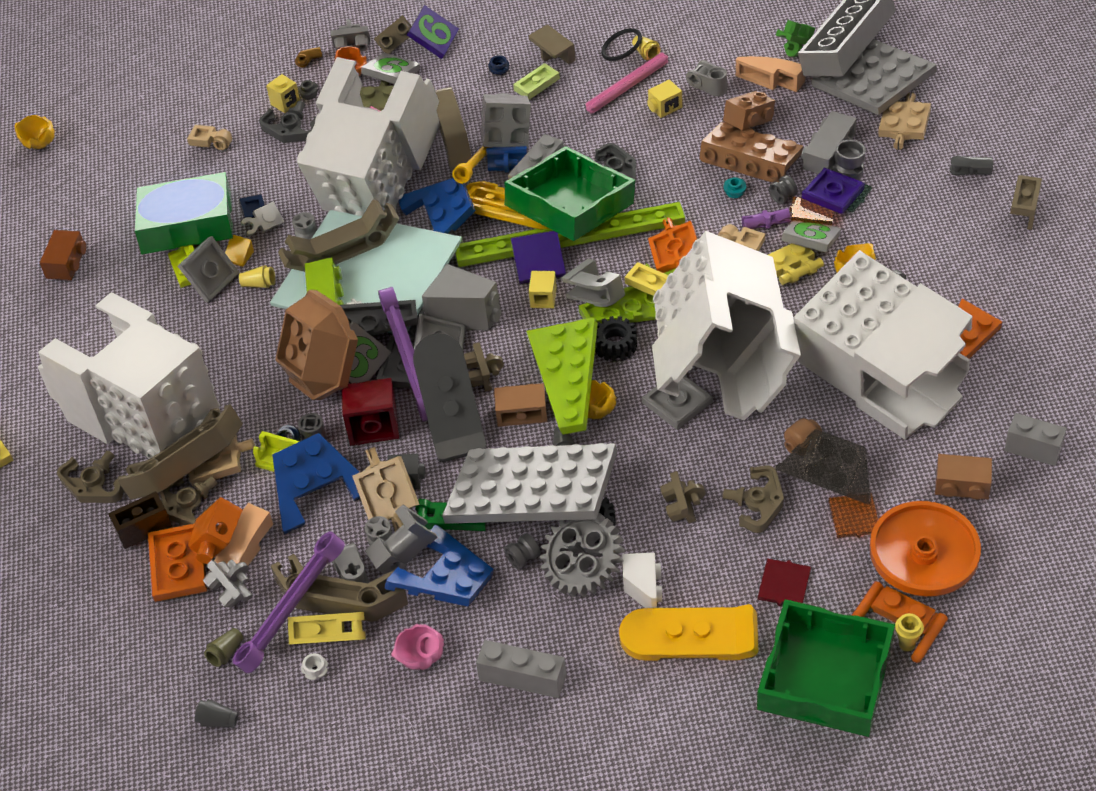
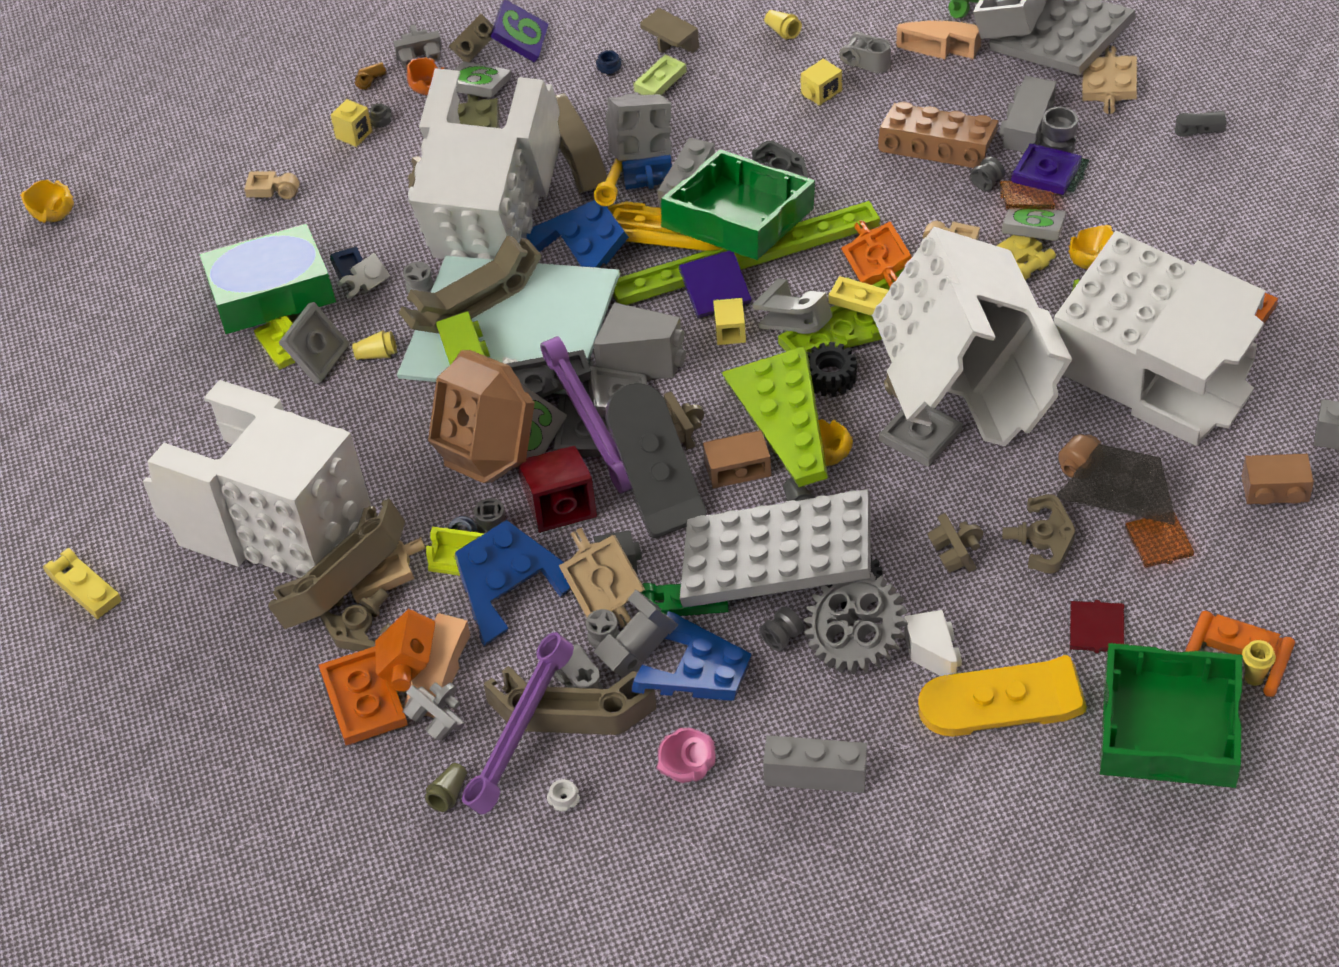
camera: 10 degrees left, 0 degrees up
(63, 255) = (124, 346): dark orange brick -> none
(89, 484) = (227, 618): dark tan piece -> none
(138, 518) = (302, 650): dark brown brick -> none
(215, 715) = (456, 867): dark grey cone -> none
(239, 250) = (344, 315): yellow slope -> none
(289, 128) = (367, 162): dark grey piece -> none
(325, 628) = (566, 748): light yellow plate -> none
(614, 36) = (757, 37): black tyre -> none
(626, 83) = (769, 68): bright pink axle -> none
(734, 187) = (928, 177): teal plate -> none
(749, 110) = (927, 85): medium nougat brick -> none
(766, 219) = (975, 210): medium lavender pin -> none
(925, 548) = (1253, 565): orange dish -> none
(1026, 197) = (1275, 153): dark tan panel -> none

